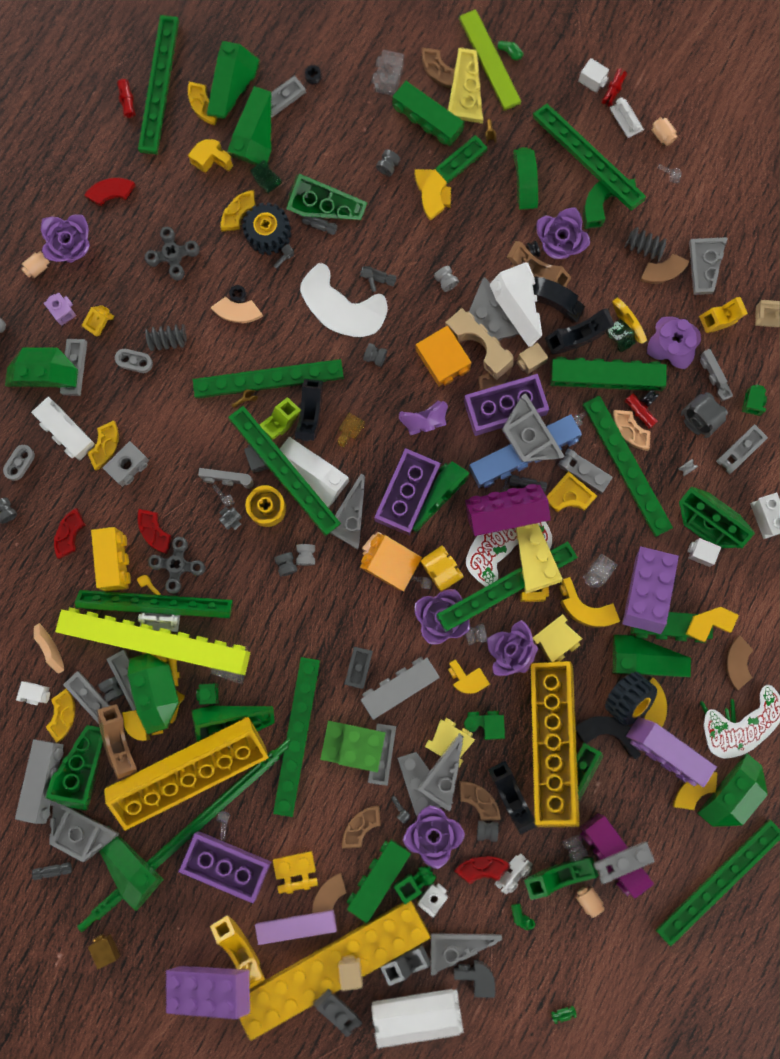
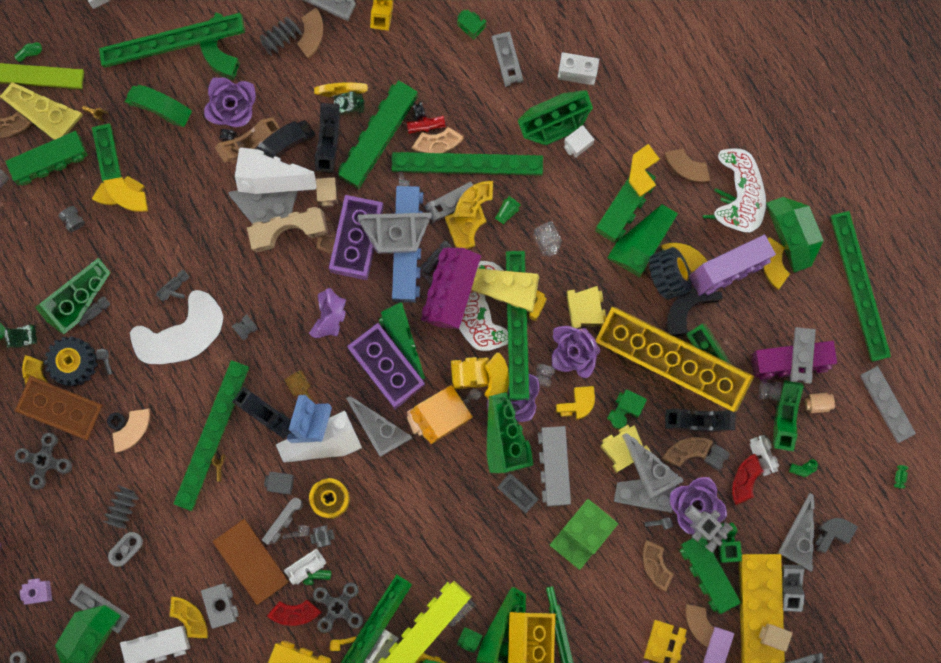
camera: 65 degrees left, 0 degrees up
(97, 319) = (66, 563): yellow bracket -> none
(178, 470) = (250, 561): none -> dark orange tile
(196, 532) = (320, 574): none -> green arm
(200, 519) = (310, 562): none -> white hinge
(223, 241) = (58, 408): none -> dark orange tile
(281, 419) = (257, 444): lime brick -> none
(284, 471) = (307, 464): green plate -> none
(286, 564) = (395, 511): dark grey wheel -> none
(297, 733) = (547, 578): green plate -> none
(305, 555) = (392, 486): light grey wheel -> none
(322, 450) = (308, 421): none -> medium blue bracket
(382, 776) = (624, 523): light grey plate -> none
(398, 631) = (505, 441): none -> green wedge
(417, 1018) = (841, 601): white brick -> none
(418, 856) = (707, 526): none -> light grey piece
(430, 907) = (749, 543): white brick -> none
(443, 356) = (281, 268): light orange brick -> none
(446, 278) = (212, 226): light grey wheel -> none
(448, 595) = (498, 376): none -> yellow tile
(583, 614) = (576, 273): yellow arch -> none
(598, 486) = (473, 198): none -> yellow tile
(606, 523) = (508, 209): none -> green cone
(624, 966) = (887, 404): none -> light grey plate
(650, 590) = (587, 205): medium lavender brick -> none
(663, 347) = (380, 74): medium lavender brick -> none
(688, 467) = (498, 113): light grey bush -> none
(704, 415) = (460, 73): dark grey brick -> none
(716, 375) = (431, 43): light grey hinge -> none

